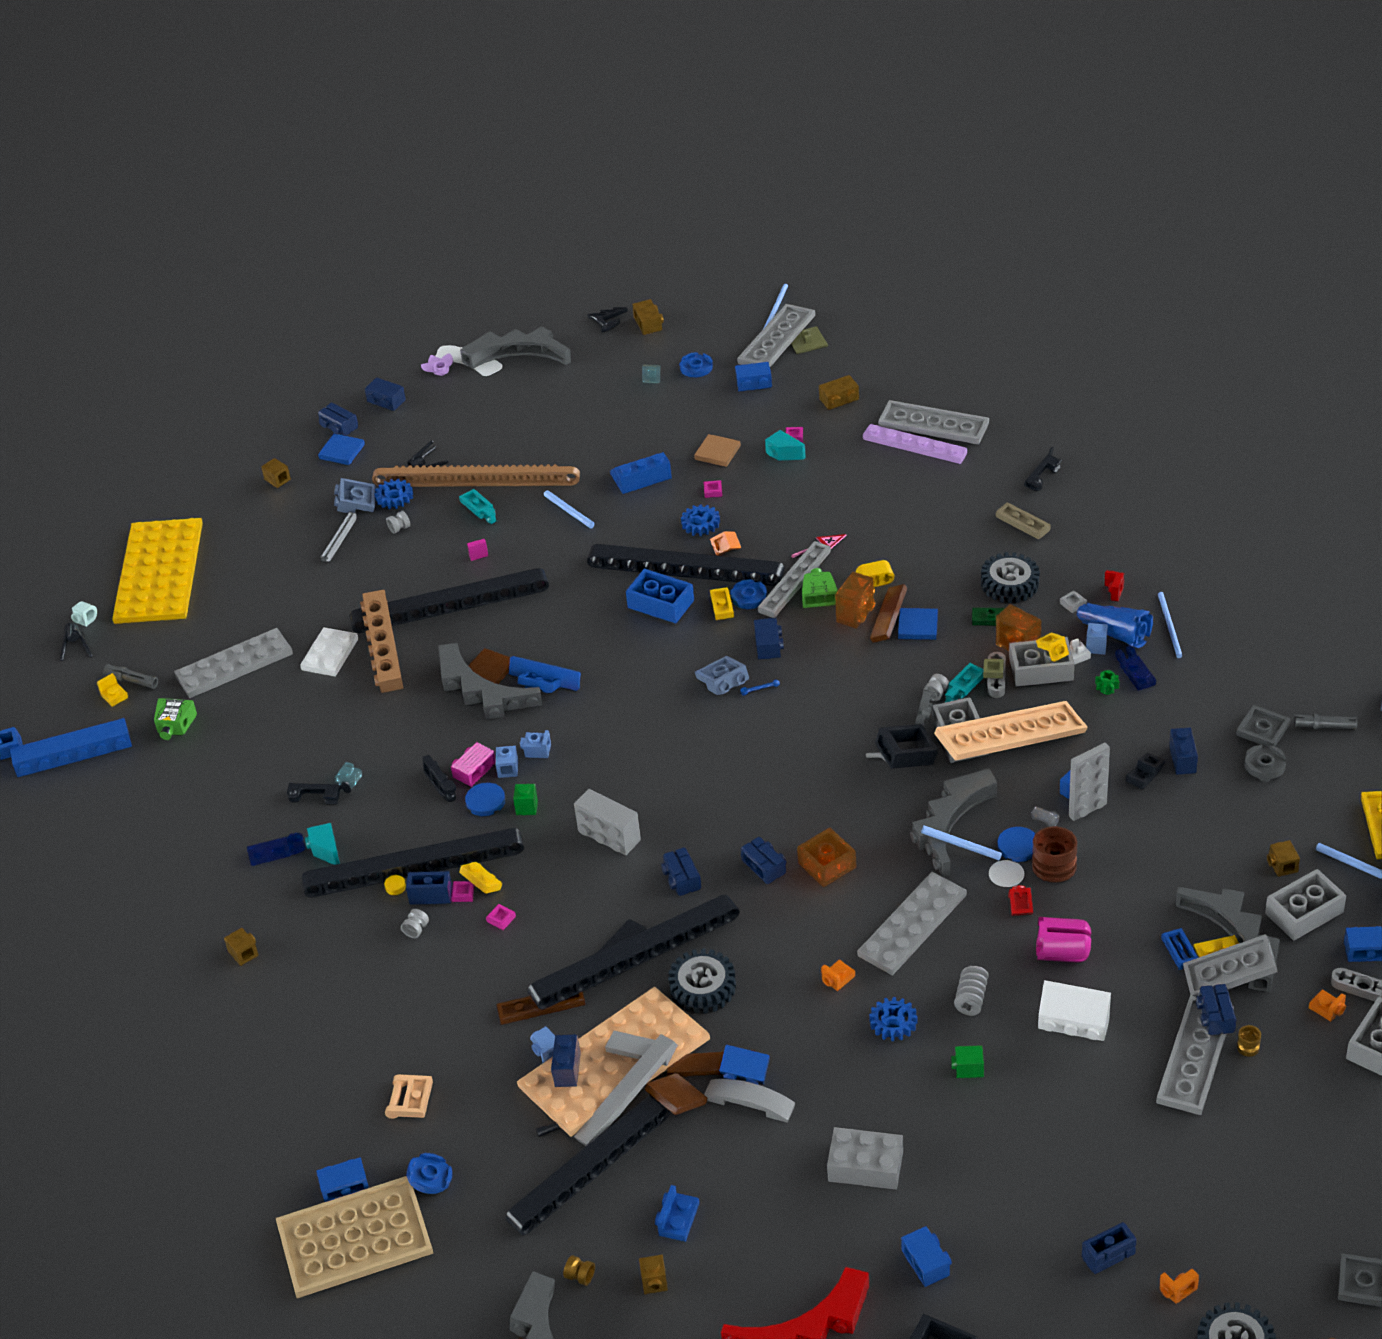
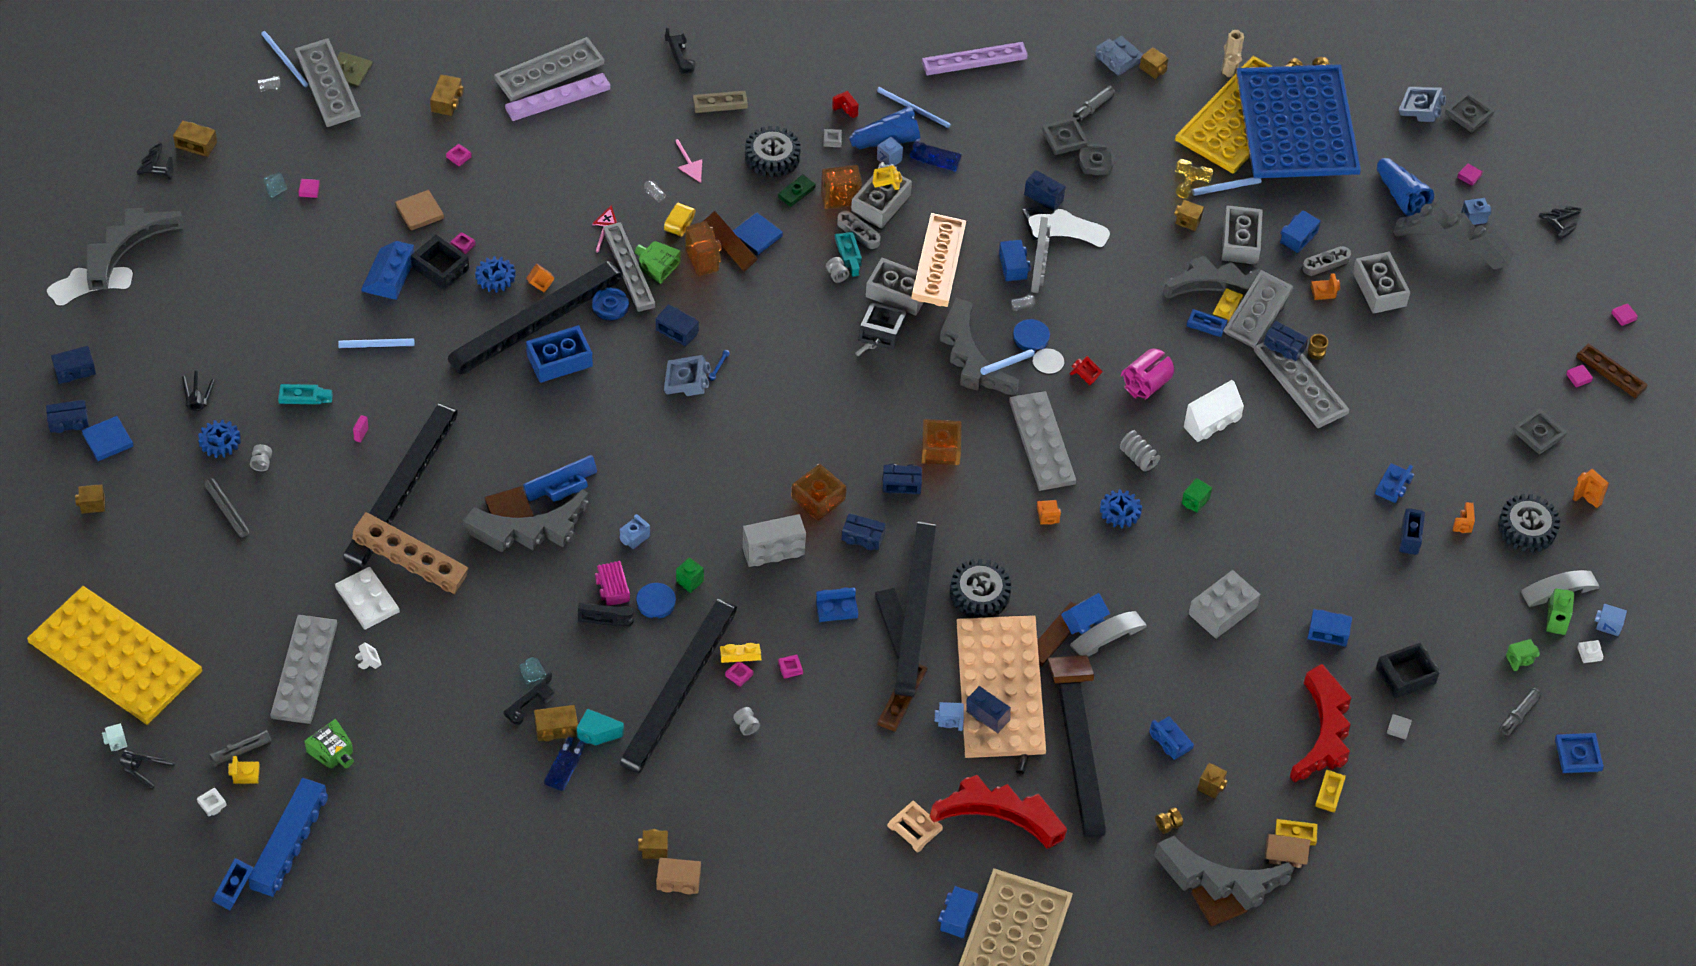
camera: 60 degrees left, 10 degrees up
(66, 691) = (211, 802): none -> white tile
(223, 979) = (678, 875): none -> medium nougat brick
(273, 684) = (369, 656): none -> white tile
(303, 815) = (556, 723): none -> pearl gold brick
(354, 496) = (190, 466): sand blue plate -> none
(395, 885) = (688, 710): yellow tile -> none
(429, 887) = (723, 689): dark blue brick -> none
(429, 1173) = (1001, 856): blue tile -> none
(437, 365) = (73, 308): lavender plate -> none
(479, 475) = (264, 374): medium nougat gear -> none
(484, 1136) = (1003, 803): none -> red arch
(506, 761) = (634, 561): medium blue brick -> none
(591, 904) = (836, 604): none -> blue bracket
(626, 1090) = (1047, 693): light grey tile -> none
(630, 1045) = (1015, 661): light grey tile -> none
(671, 391) = (309, 188): none -> dark pink tile
(678, 477) = (431, 248): none -> black window
(689, 817) = (818, 492): none -> clear orange brick
(696, 365) = (294, 152): blue tile -> none
(721, 603) = (605, 325): yellow plate -> none
(744, 316) = (269, 83): none -> clear pin
(753, 376) = (360, 129): blue brick -> none
(784, 447) = (471, 169): teal slope -> none
(887, 543) = (652, 188): none -> clear pin
(925, 708) = (859, 290): dark grey plate -> none
(940, 552) = (692, 169): none -> bright pink piece
(993, 668) = (860, 226): olive plate -> none
(1054, 854) = (1070, 322): copper wheel -> none
(1107, 682) = (936, 179): green gear -> none
(1160, 1201) = (1393, 482): none -> blue bracket
(1167, 790) = (1066, 224): none -> white sticker
(1270, 623) = (974, 58): none -> lavender plate
(1335, 831) = (1191, 174): none -> clear yellow bar

